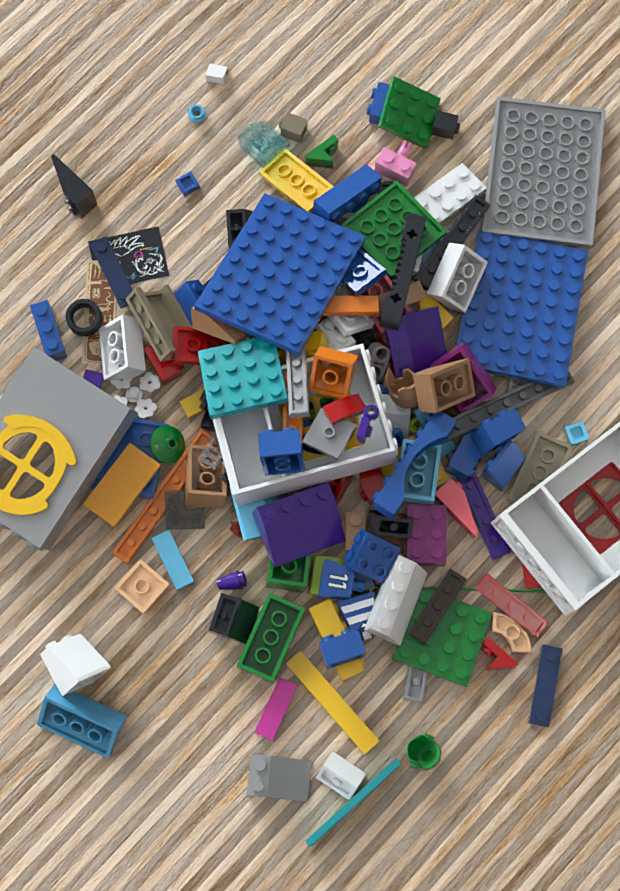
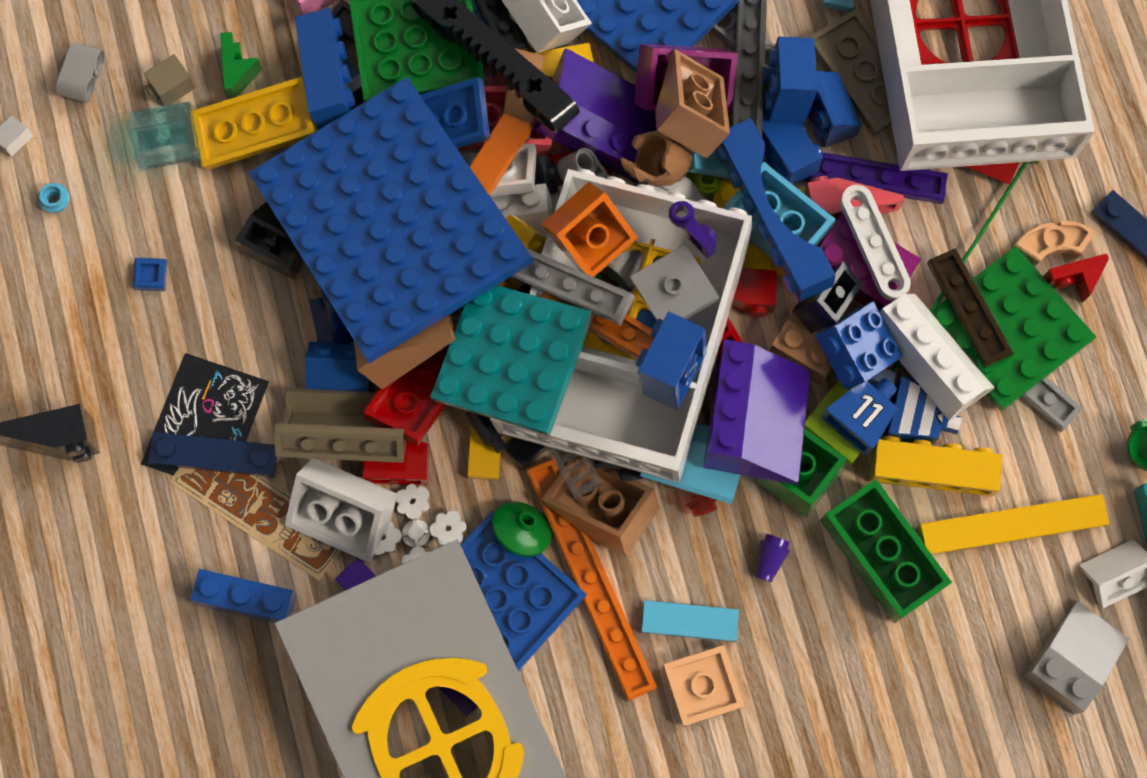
camera: 65 degrees left, 0 degrees up
(84, 303) = (239, 518): black tyre -> none
(121, 485) = (543, 626): light orange tile -> none
(177, 516) = (636, 574): clear smoke plate -> none
(234, 618) = (826, 586): black slope -> none
(270, 83) = (80, 72): none -> light grey beam
(276, 708) = (981, 605): dark pink tile -> none
(342, 648) = (966, 461): blue brick -> none
(344, 408) = (652, 246): red slope -> none
(436, 530) = (875, 242): none -> white plate
(511, 605) = (1019, 215): tile -> none

